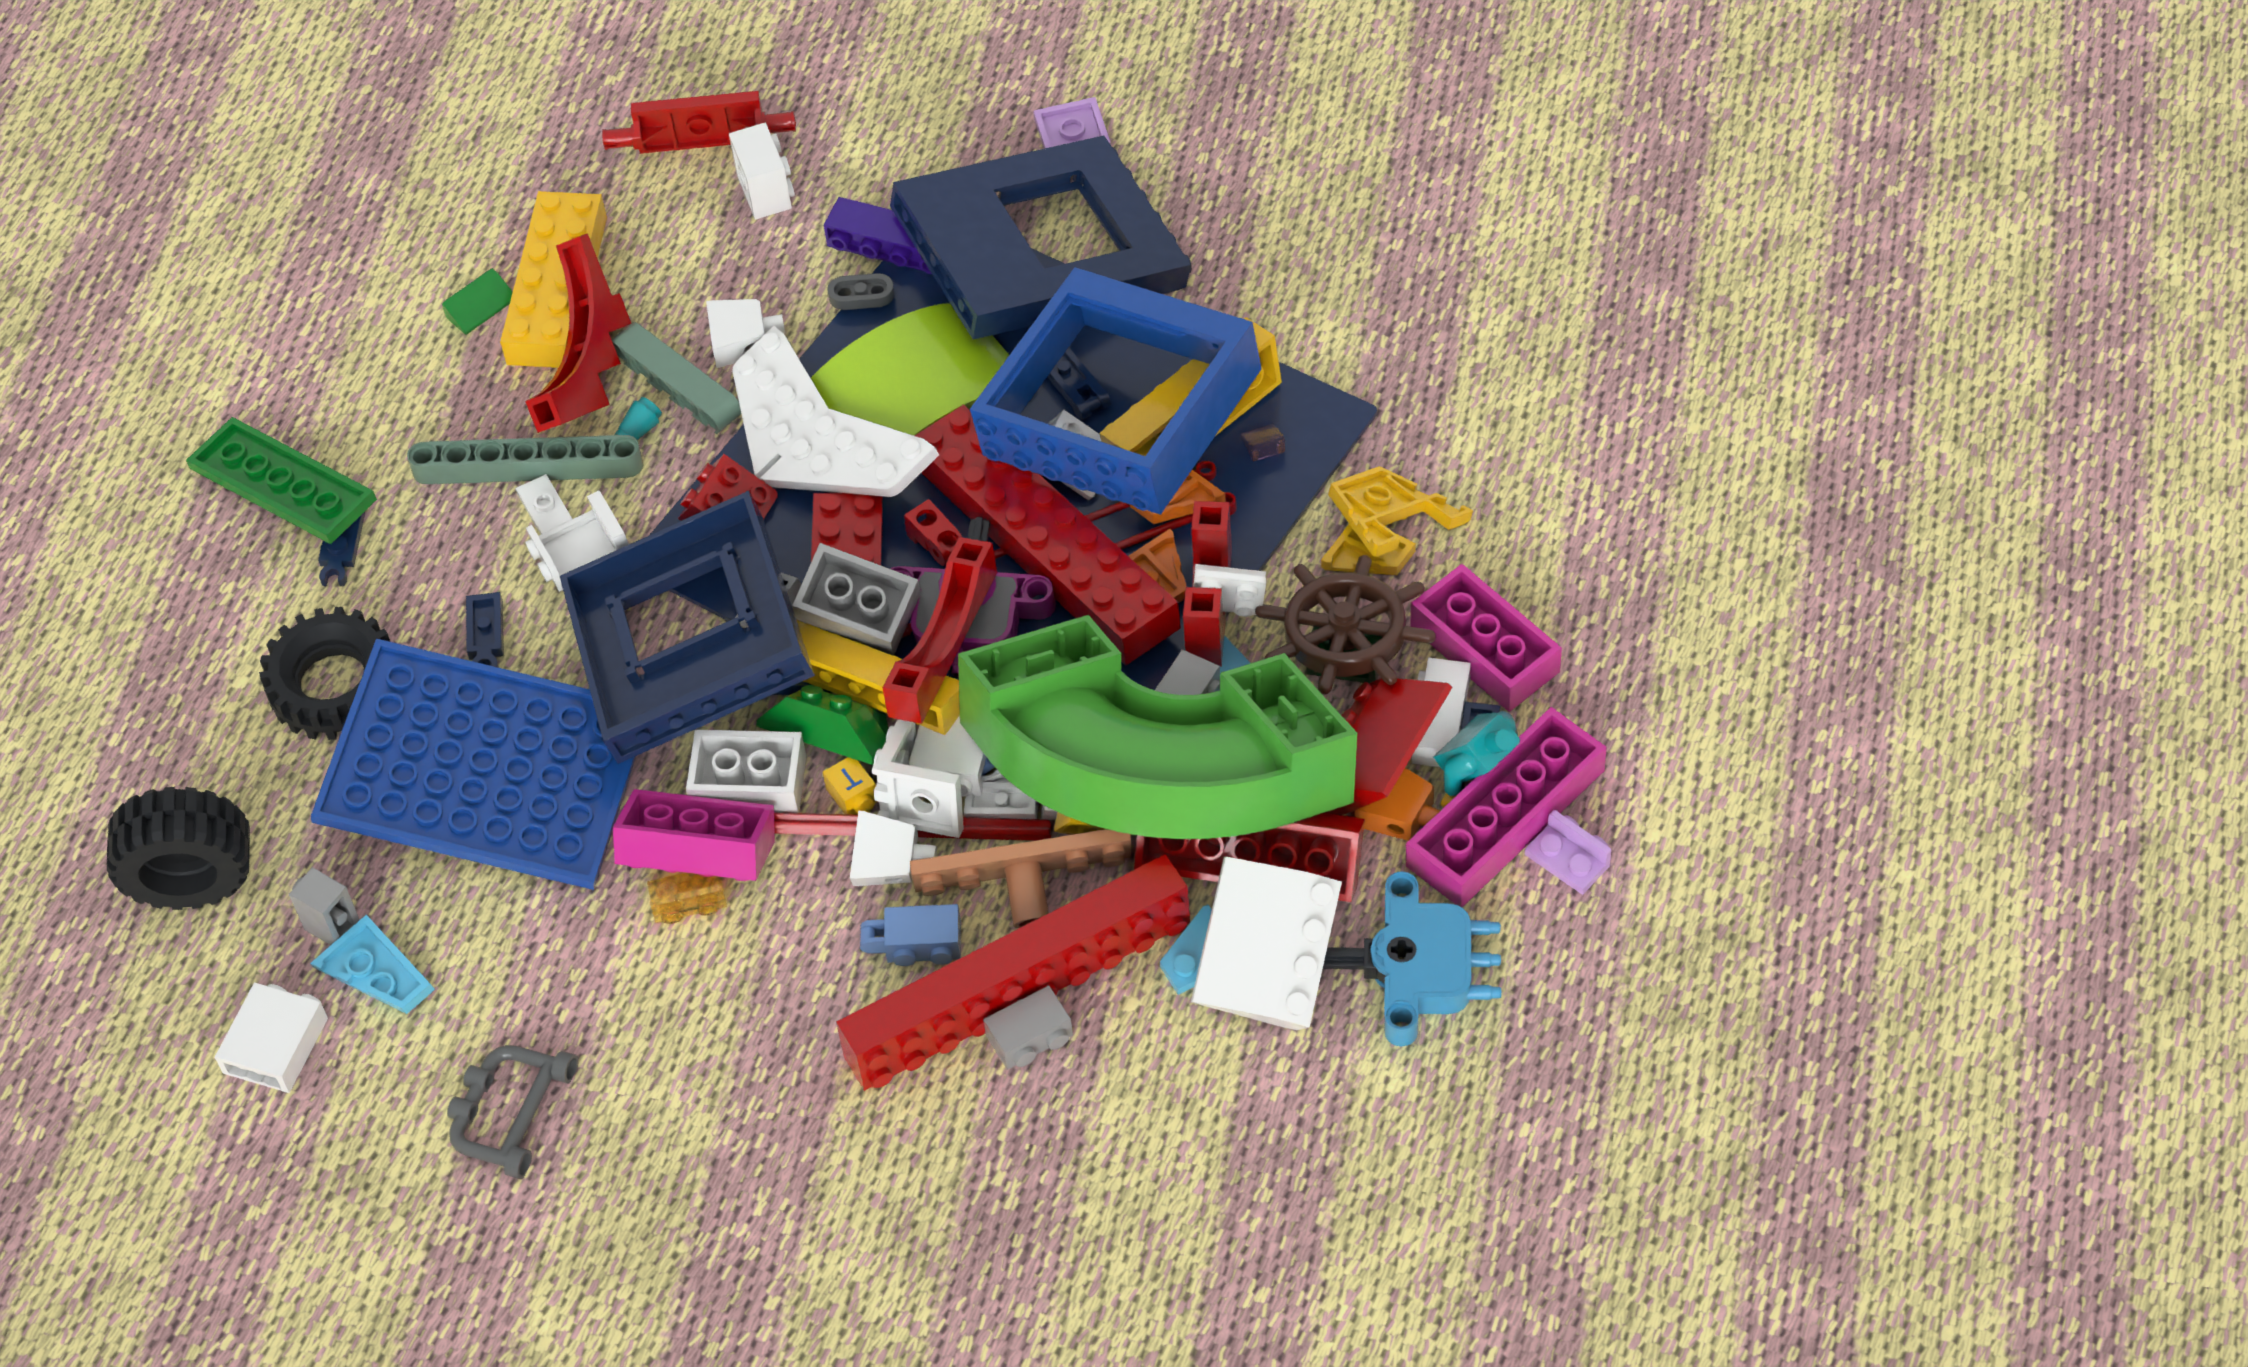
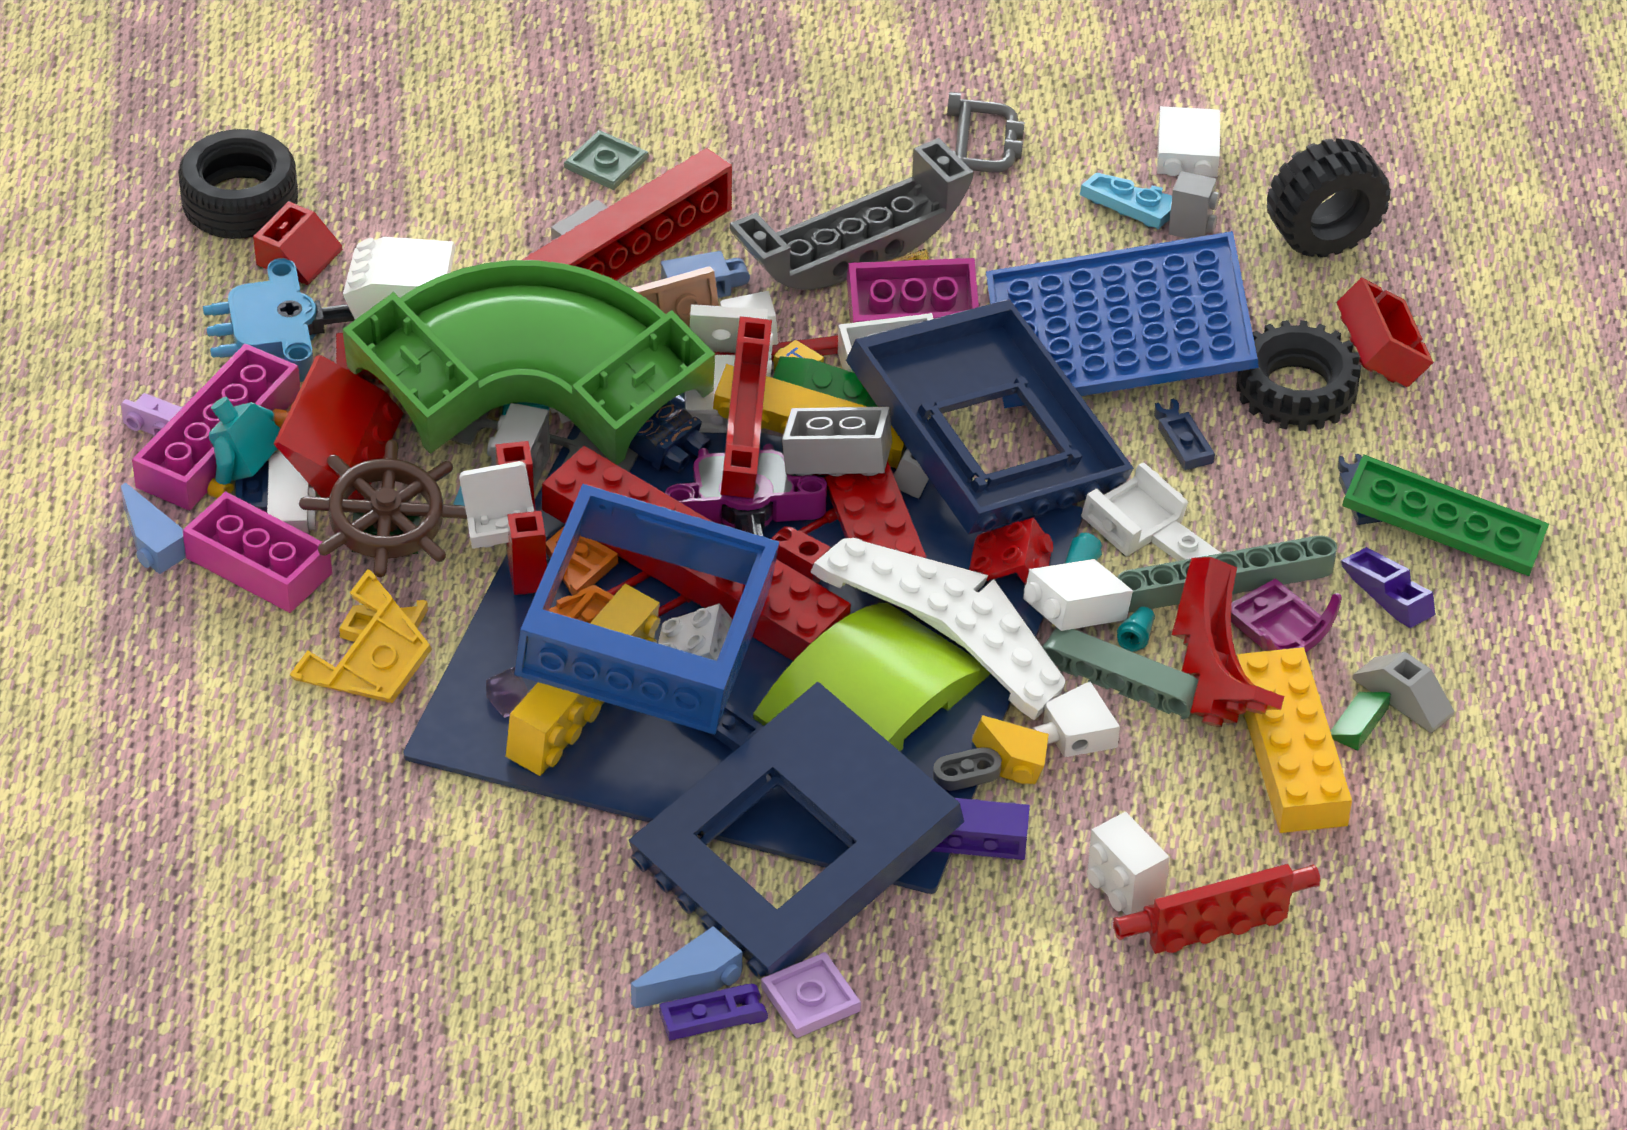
camera: 160 degrees right, 10 degrees down
(228, 668) = (1384, 333): none -> red piece
(376, 425) = (1390, 586): none -> dark purple slope
(428, 317) = (1411, 686): none -> light grey slope
(498, 402) = (1281, 619): none -> magenta piece
(653, 508) = (1084, 548): none -> teal cone
(682, 439) = (1077, 594): none -> white brick
(727, 940) = (864, 230): none -> dark grey slope
(807, 305) = (1019, 748): none -> yellow slope
(970, 1160) = (606, 160): none -> sand green tile
(1159, 130) = (712, 1011): none -> dark purple plate
(1170, 159) = (691, 971): none -> medium blue slope
(1379, 1066) = (298, 237): none -> red slope
(1429, 1118) = (231, 156): none -> black tyre
(1589, 686) = (155, 535): none -> medium blue slope

